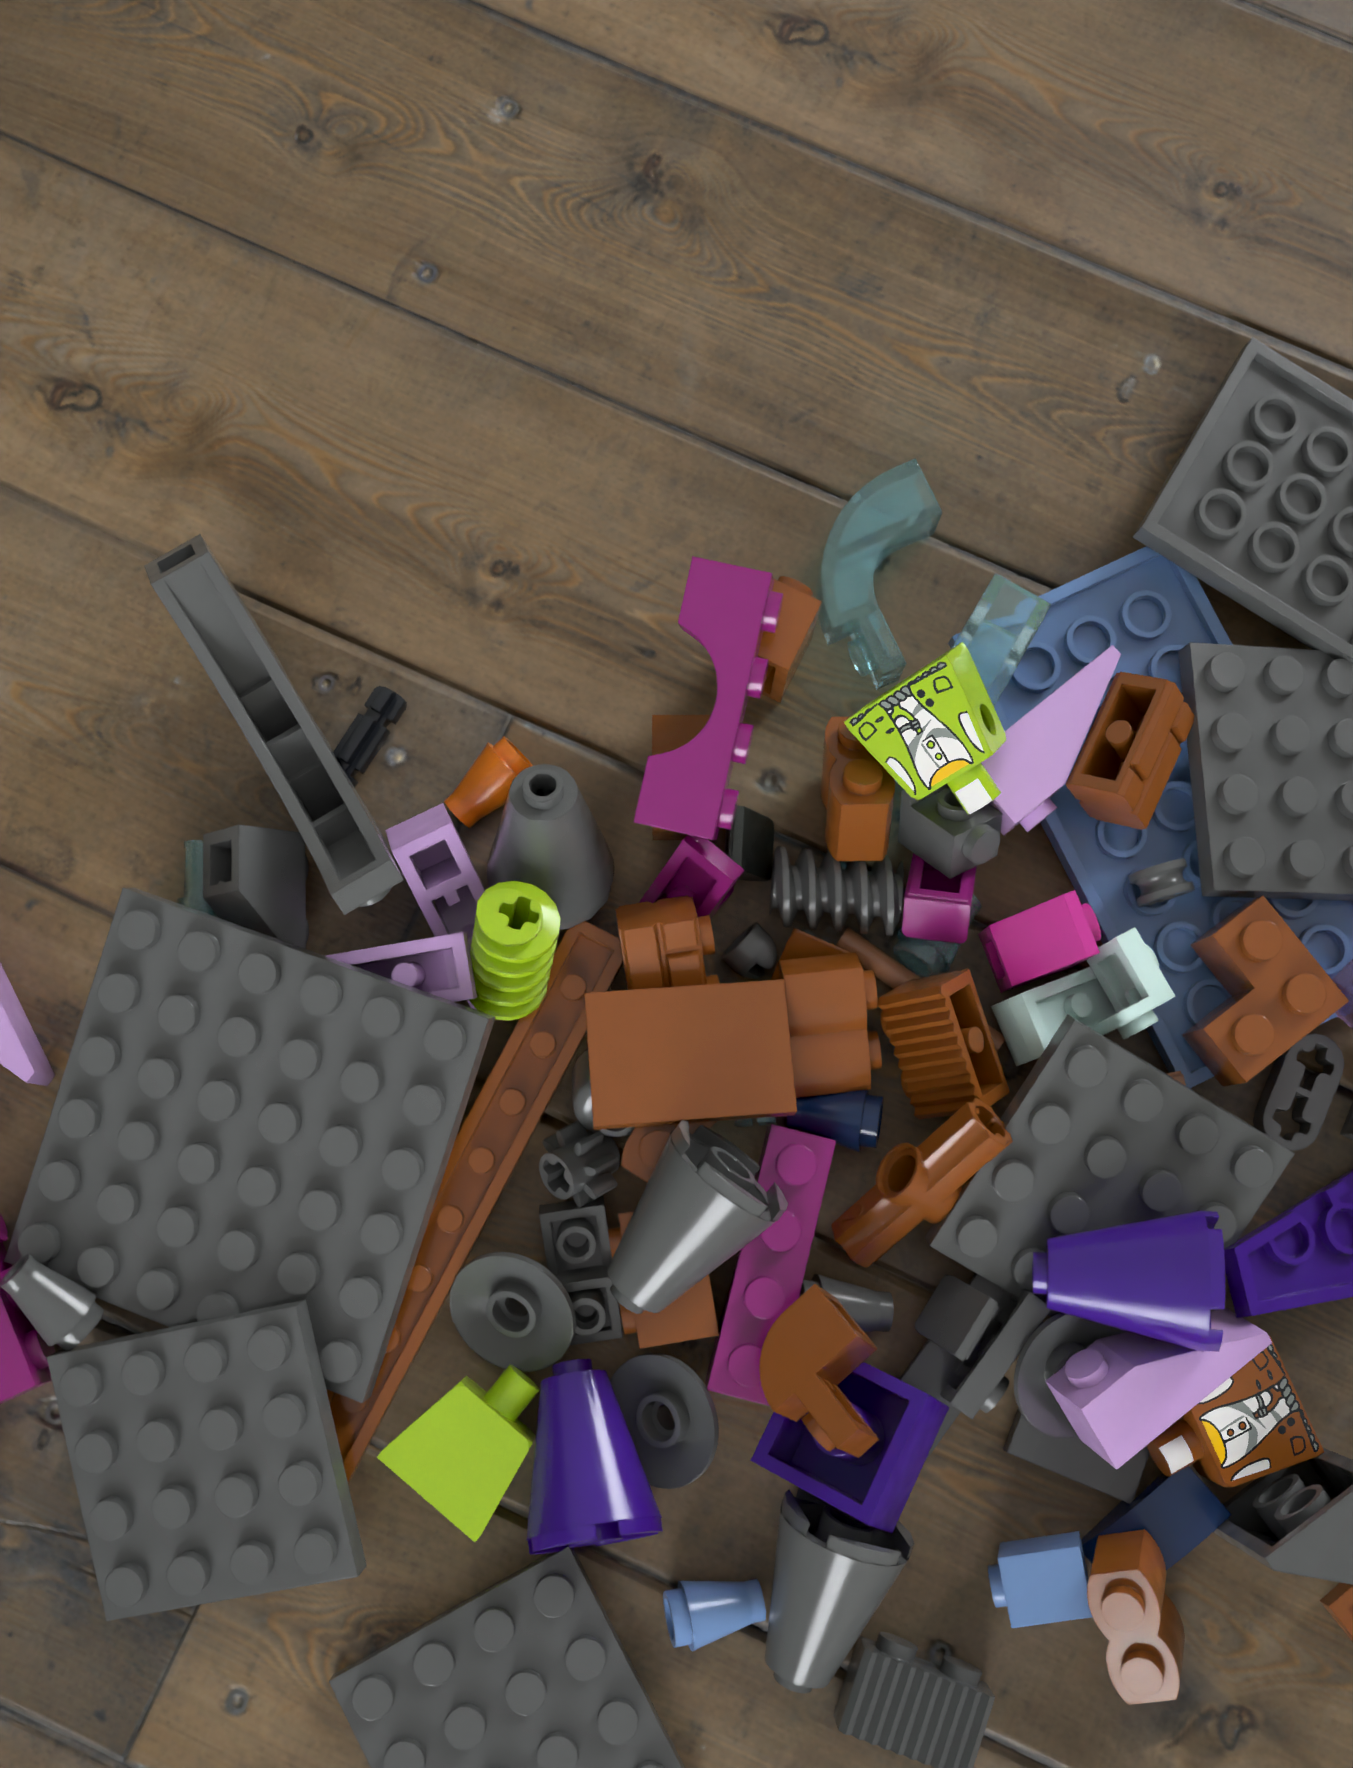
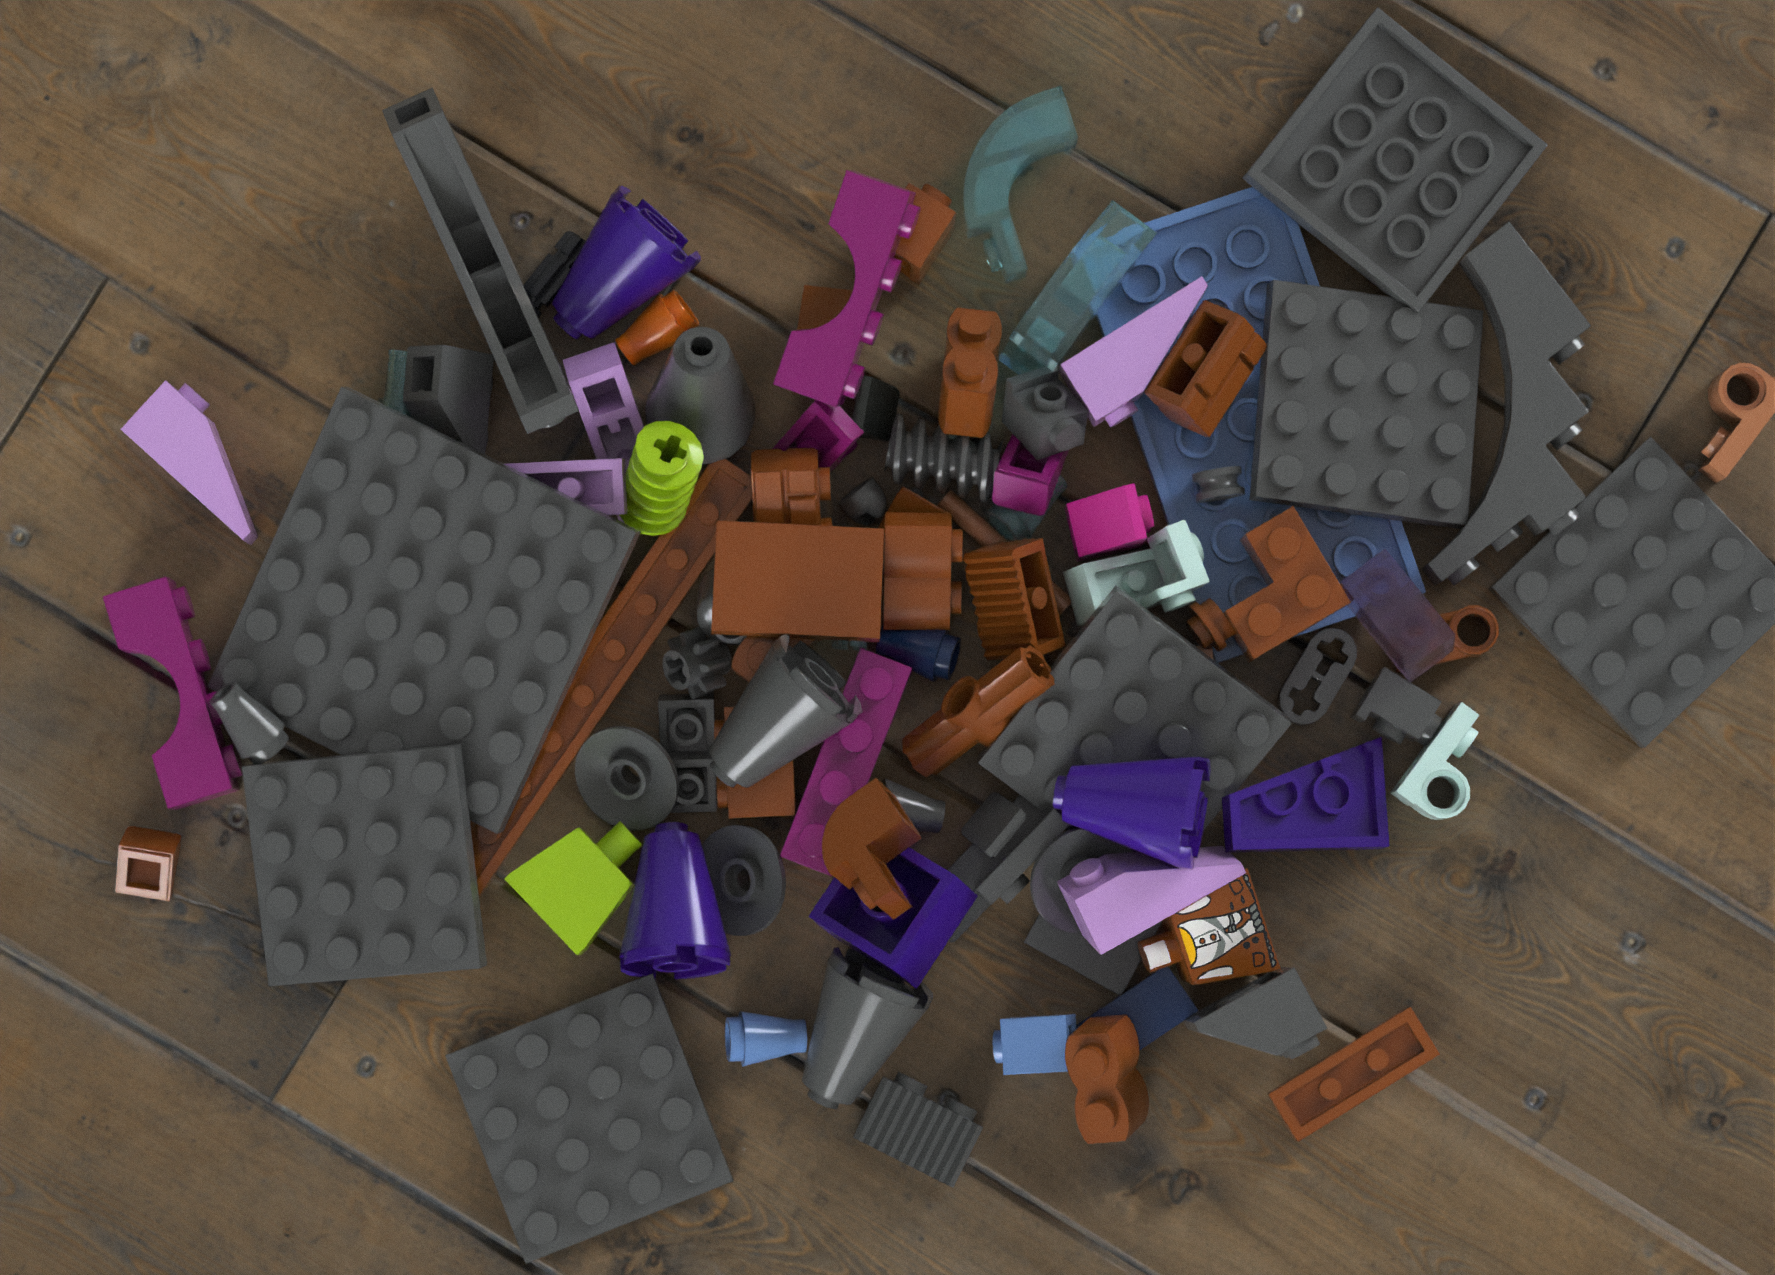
camera: 10 degrees right, 5 degrees up
(439, 717) = (621, 266): none -> dark purple cone
(935, 730) = (1035, 335): torso -> none
(1177, 1047) = (1209, 625): none -> dark orange plate

